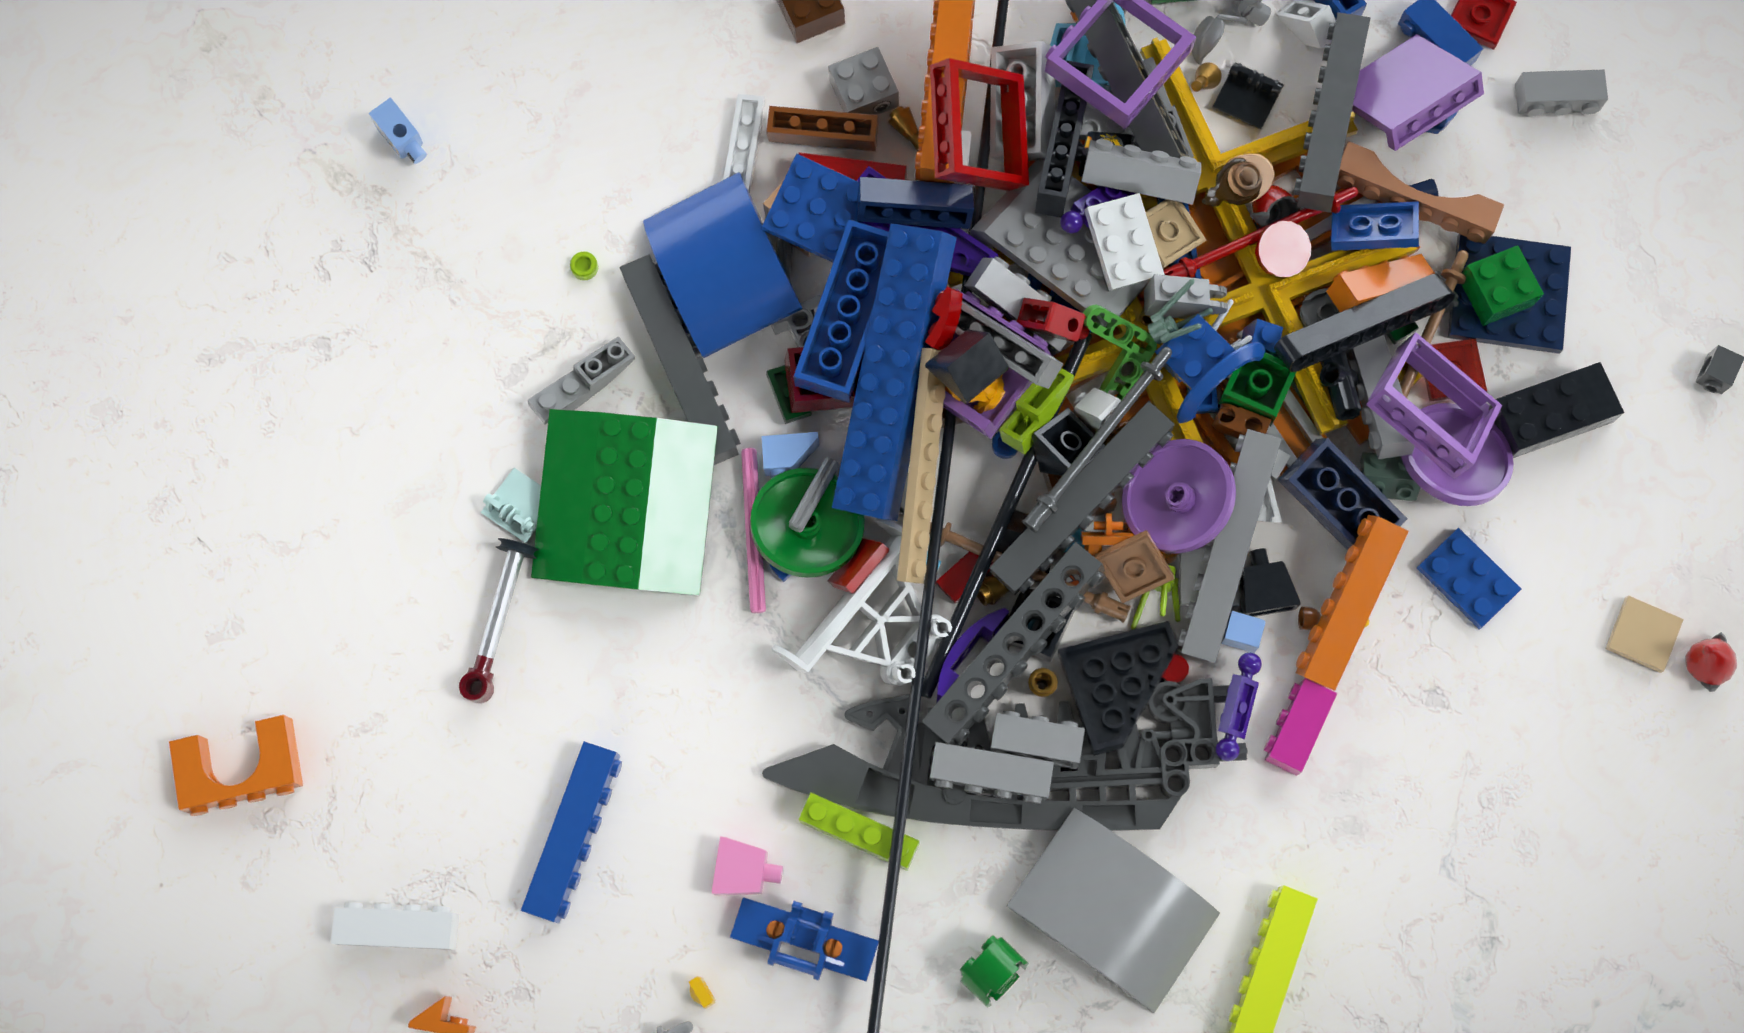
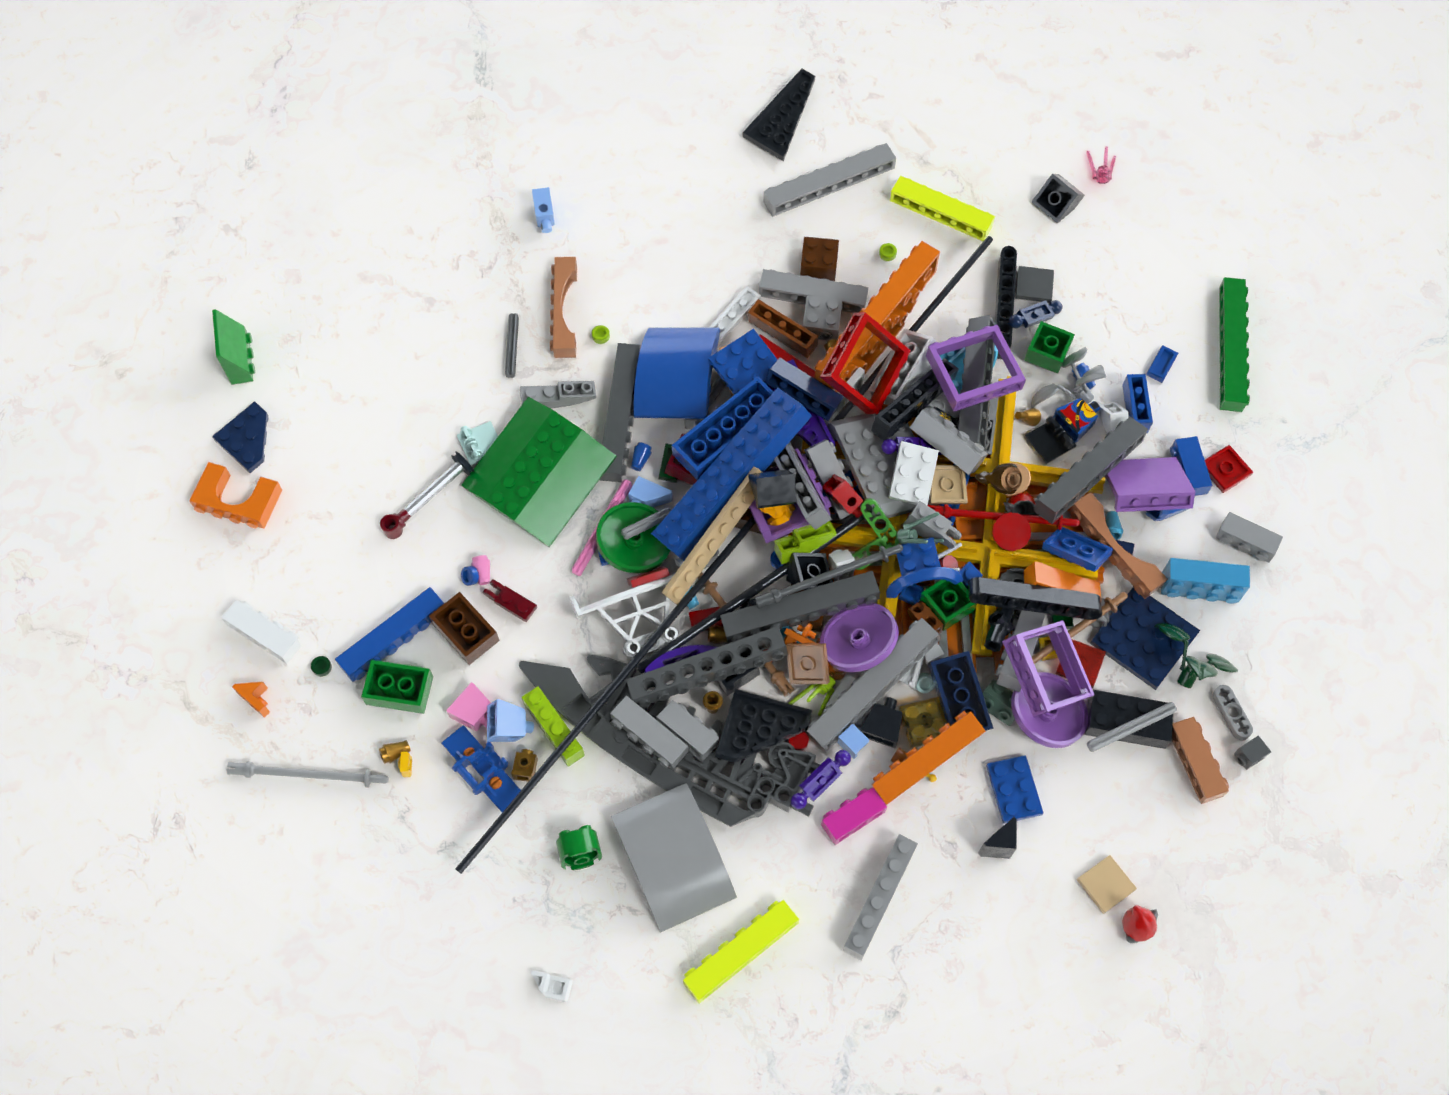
camera: 25 degrees right, 10 degrees down
(98, 563) = (233, 348): none -> slope
(193, 675) = (245, 437): none -> dark blue plate
(475, 346) = (511, 351): none -> dark grey axle
(484, 206) = (564, 275): none -> nougat arch
(504, 927) = (321, 666): none -> dark green tile
(623, 694) = (469, 575): none -> blue tile
(626, 898) = (397, 686): none -> green brick
(633, 676) = (482, 565): none -> bright pink cone
(663, 769) = (464, 628): none -> reddish brown brick
(673, 985) = (392, 751): none -> pearl gold cone
(698, 696) = (511, 601): none -> dark red hinge
(743, 405) = (640, 456): none -> blue cone
(799, 863) = (506, 722): none -> light blue torso
(809, 59) = (796, 289): none -> light grey brick
(858, 914) = (525, 772): none -> pearl gold brick
(948, 308) = (781, 454): red slope -> none
(1230, 332) = (948, 561): none -> tile
(1265, 47) = (1077, 417): none -> torso
(1286, 504) = (925, 683): none -> light aqua tile
(1305, 564) = (922, 720): none -> clear yellow piece
(1393, 164) = (1114, 524): none -> medium azure cone
(1394, 810) = (880, 897): none -> light grey brick
(1499, 653) = (1002, 843): none -> black slope
(1501, 285) = (1137, 625): green brick -> none
(1548, 178) = (1206, 580): none -> dark azure brick
(1571, 422) = (1131, 726): none -> light grey axle
(1593, 310) = (1195, 667): none -> dark green plant
(1654, 333) = (1244, 723): none -> light grey beam
(1665, 417) = (1198, 760): none -> nougat brick

